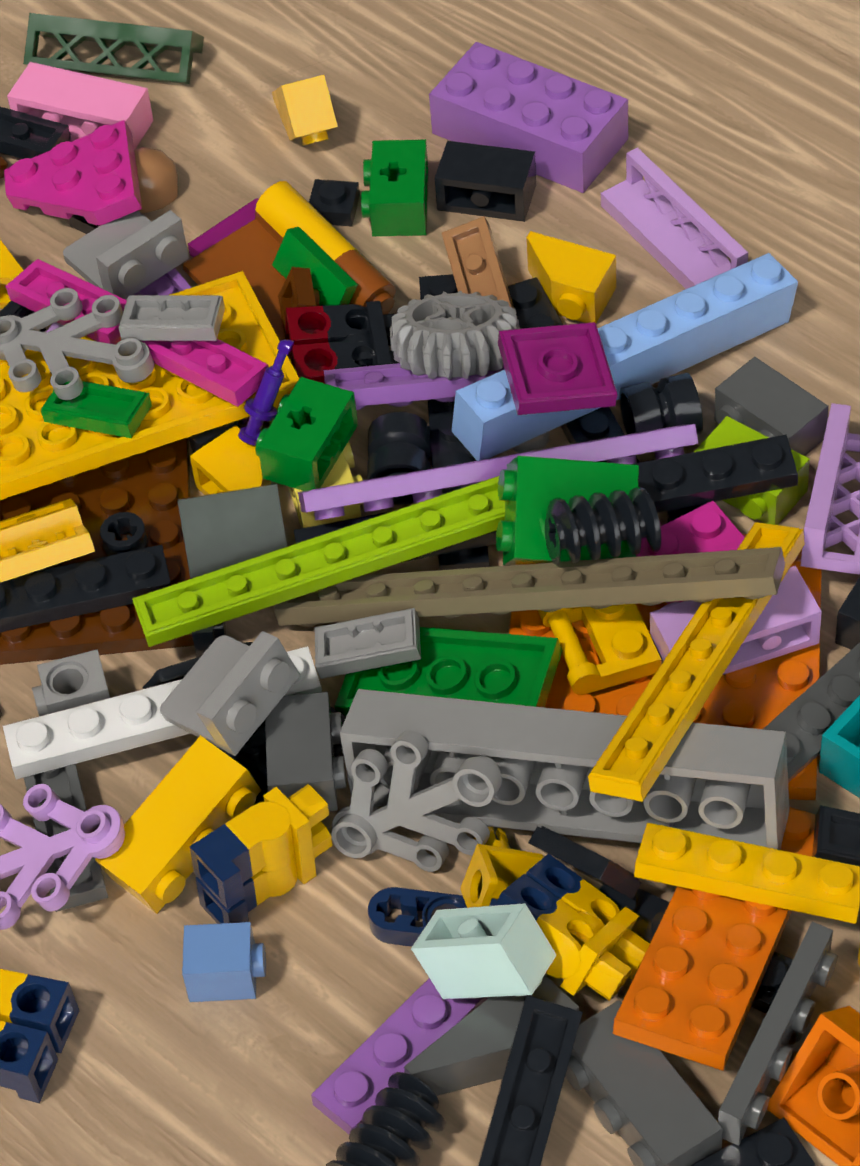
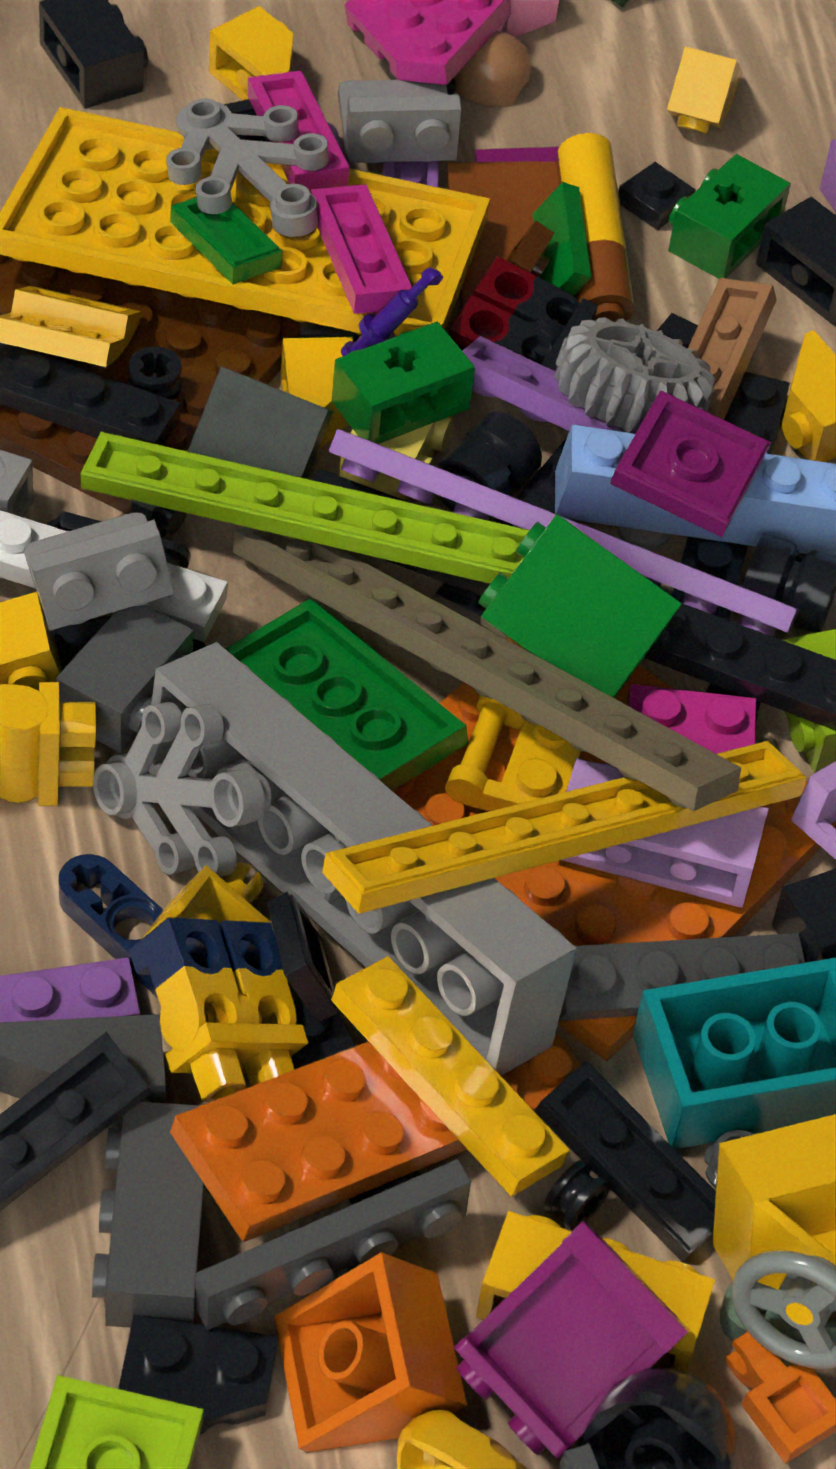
camera: 25 degrees right, 0 degrees up
(172, 317) = (360, 191): light grey plate -> none
(367, 643) = (286, 615): light grey plate -> none
(484, 951) = (108, 966): light aqua brick -> none
(601, 522) = (587, 637): black piece -> none

